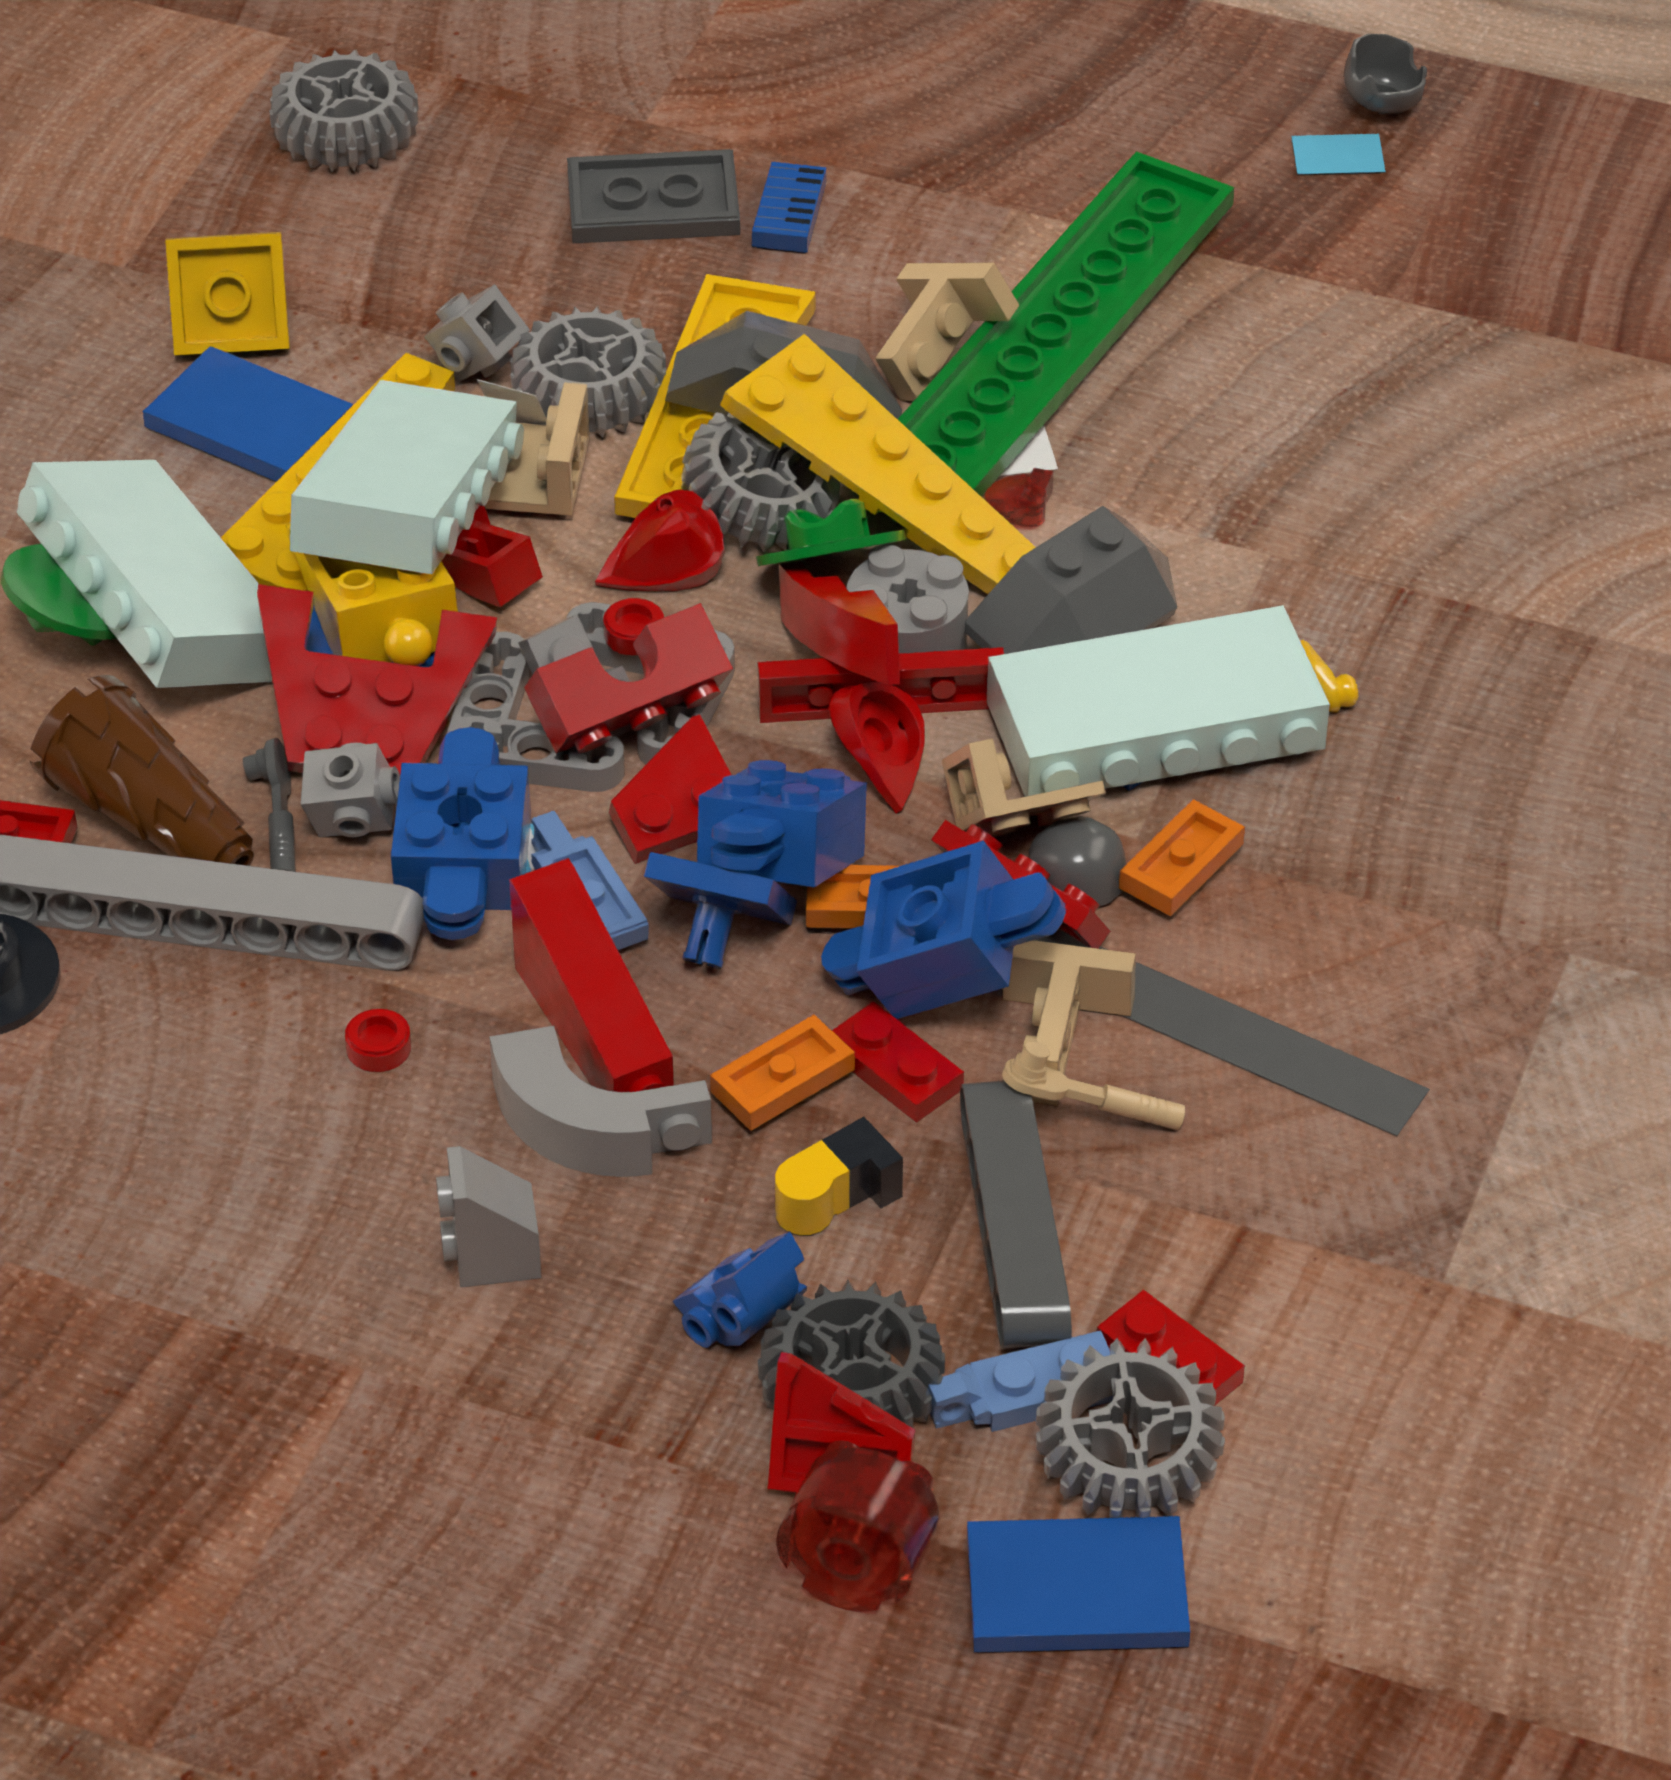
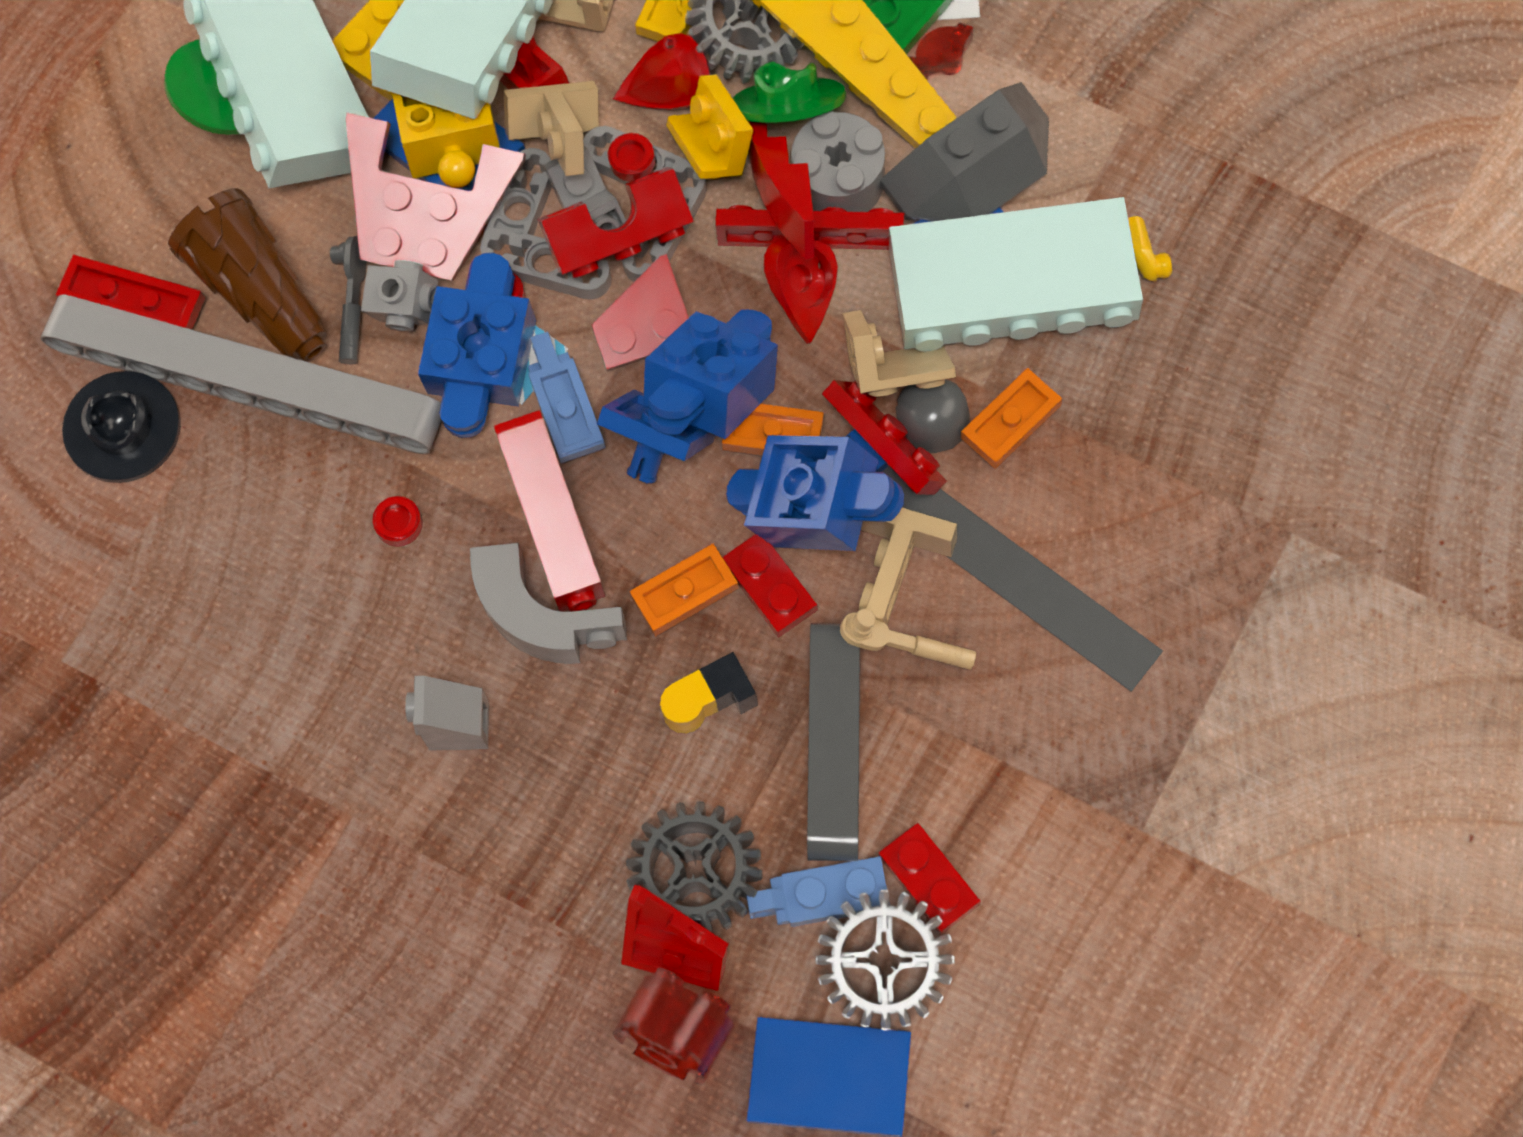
camera: 15 degrees right, 25 degrees up
(524, 588) = (554, 114): none -> tan bracket
(742, 586) = (715, 132): none -> yellow bracket
(742, 1293) = (621, 797): blue cylinder -> none

